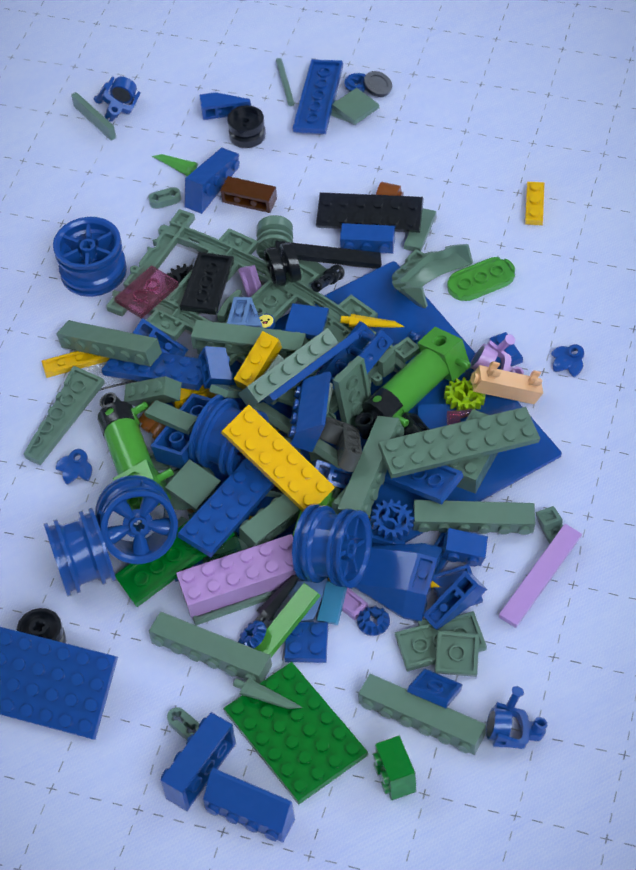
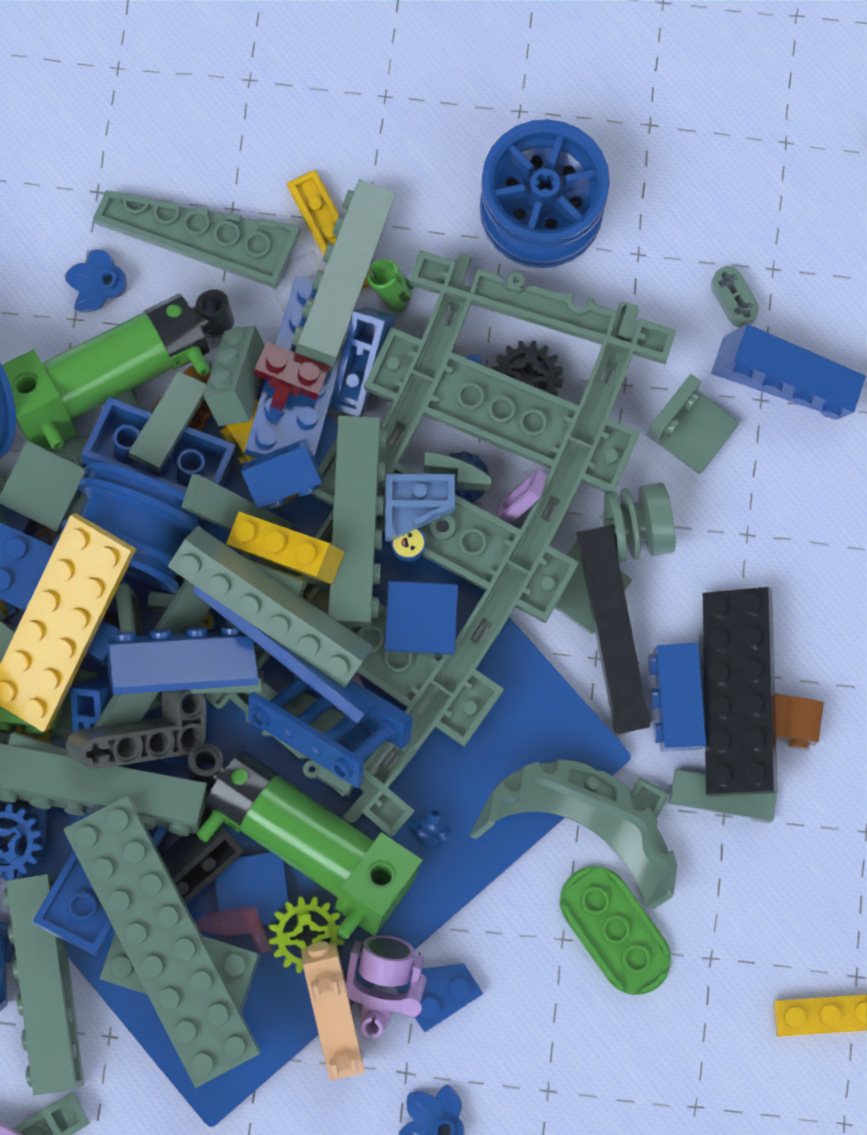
camera: 75 degrees right, 25 degrees up
(118, 323) = (390, 284): none -> bright green arm
(146, 291) = (458, 314): clear pink tile -> none
(160, 362) = (289, 374): none -> hinge
(183, 166) = (824, 313): bright green bar -> none
(207, 283) = (493, 418): black tile -> none
(227, 217) = (692, 426): none -> sand green bracket
(248, 194) = (762, 452): reddish brown brick -> none
(282, 264) = (531, 549): black wheel -> none
(328, 278) = (561, 642): black pin -> none
(352, 390) = (241, 729): sand green plate -> none
(354, 319) = (435, 727): yellow bar -> none

